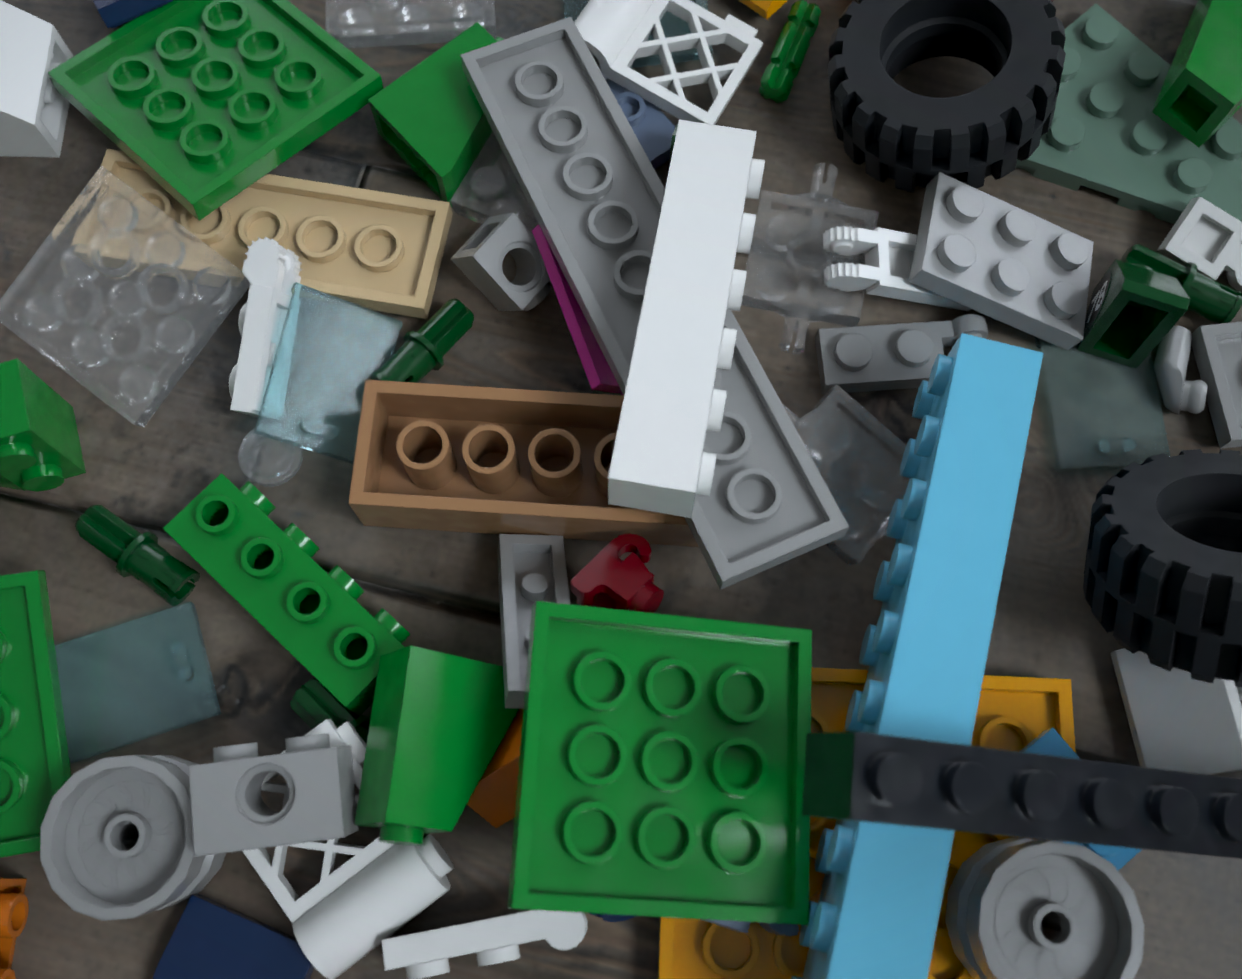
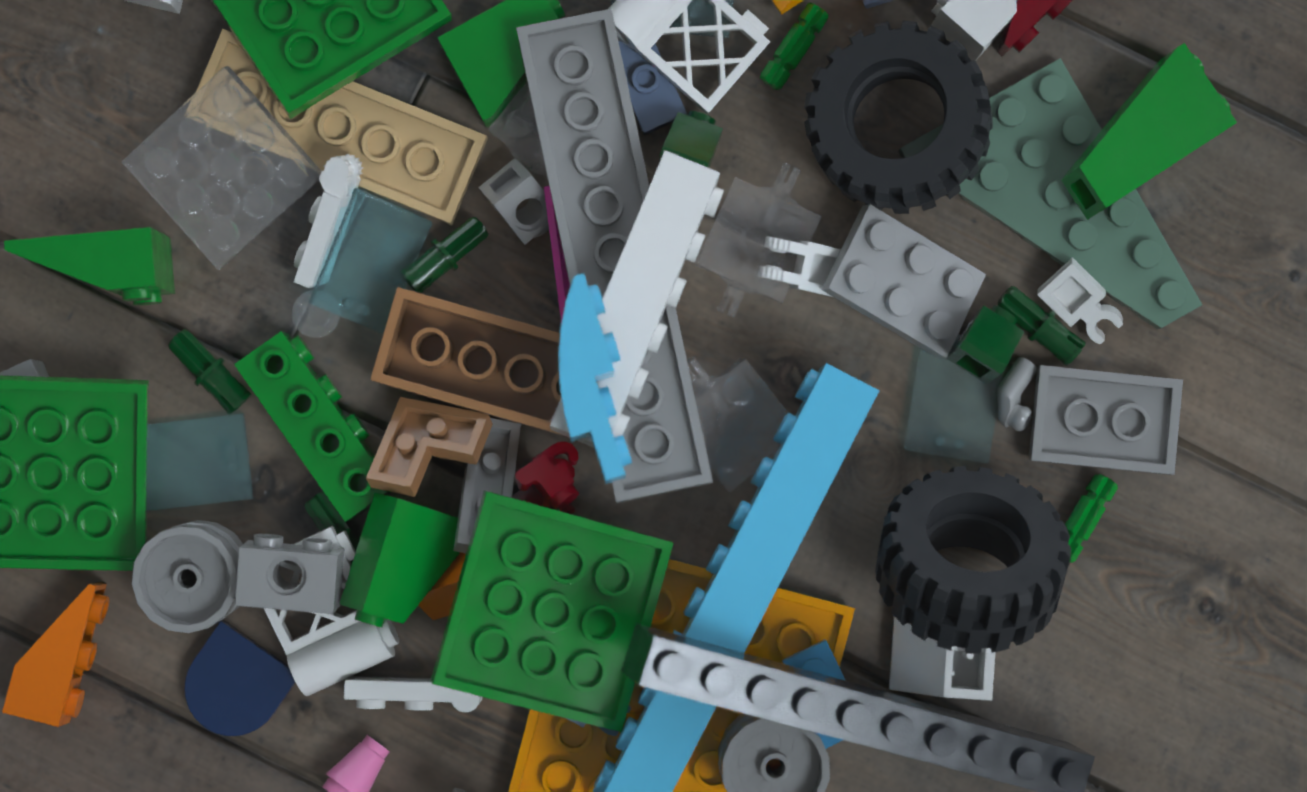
camera: 10 degrees right, 15 degrees up
(430, 563) = (425, 431): none -> medium nougat plate
(643, 391) = (583, 360): none -> medium azure slope
(889, 353) = (809, 335): light grey plate -> none

